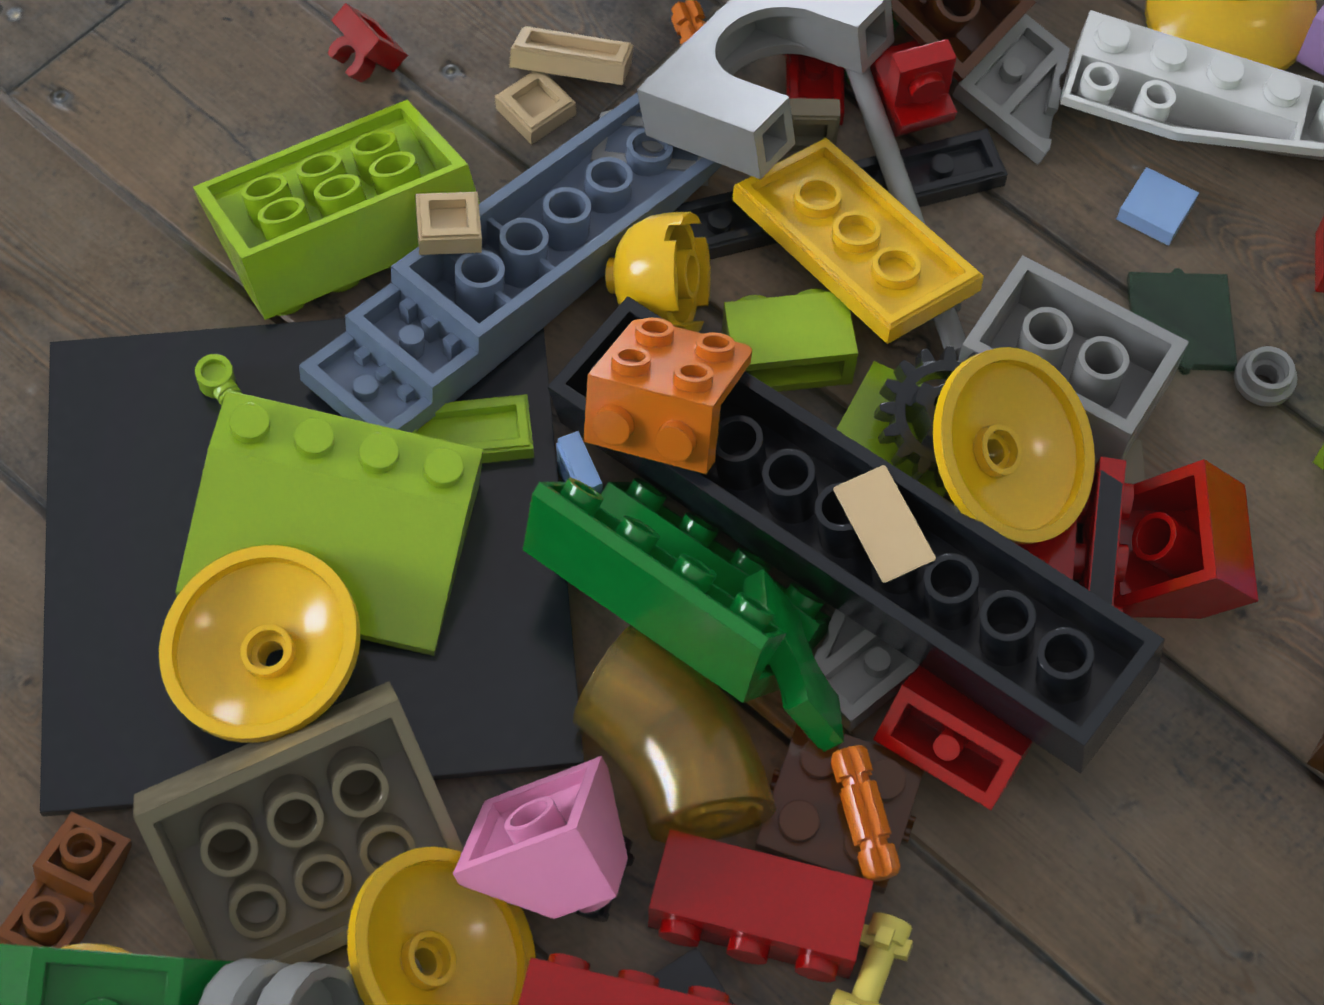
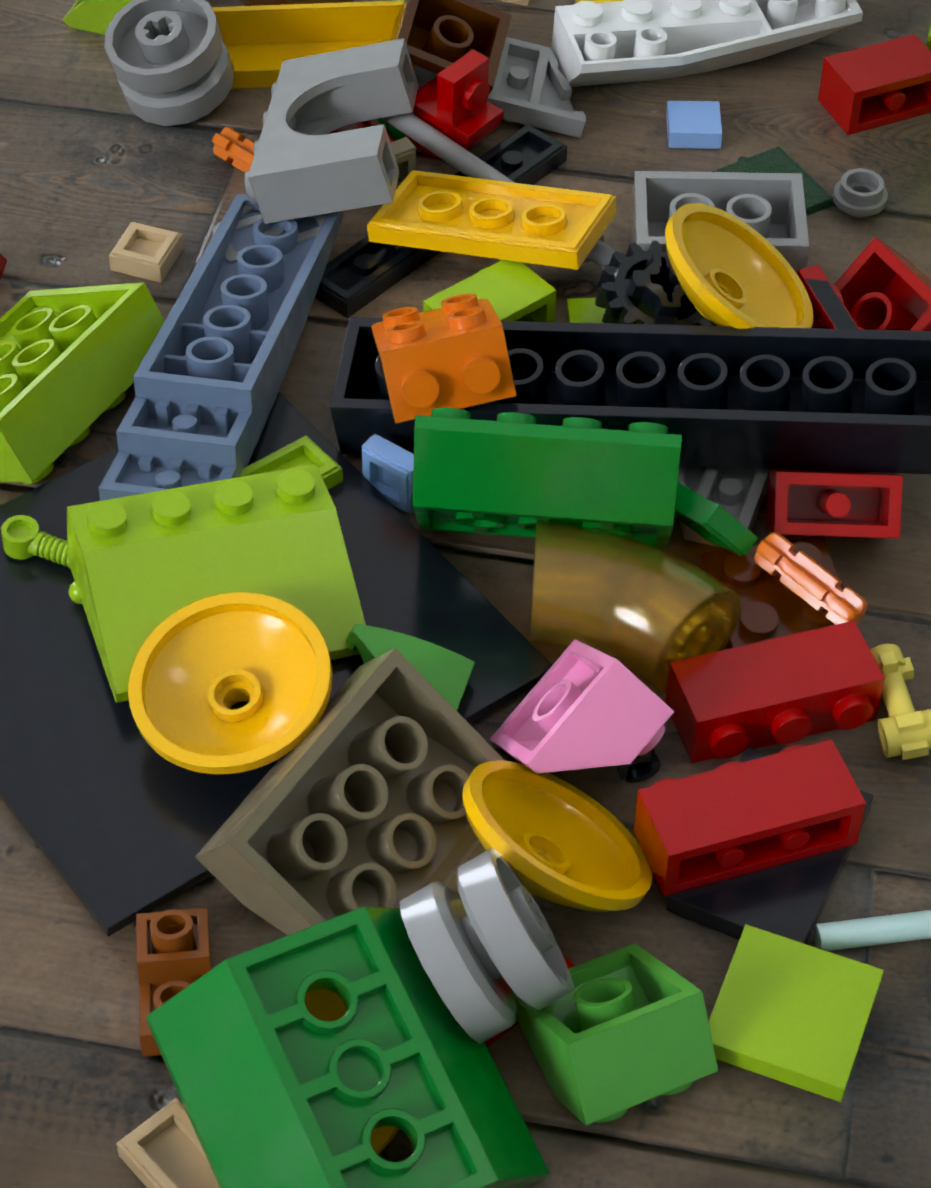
camera: 30 degrees left, 15 degrees down
(446, 704) = (439, 666): none -> bright green slope
(448, 223) = (159, 328): tan tile -> none
(571, 55) = (153, 202): tan tile -> none
(663, 268) = (344, 289): yellow cylinder -> none
(884, 524) = (684, 363): tan sticker -> none

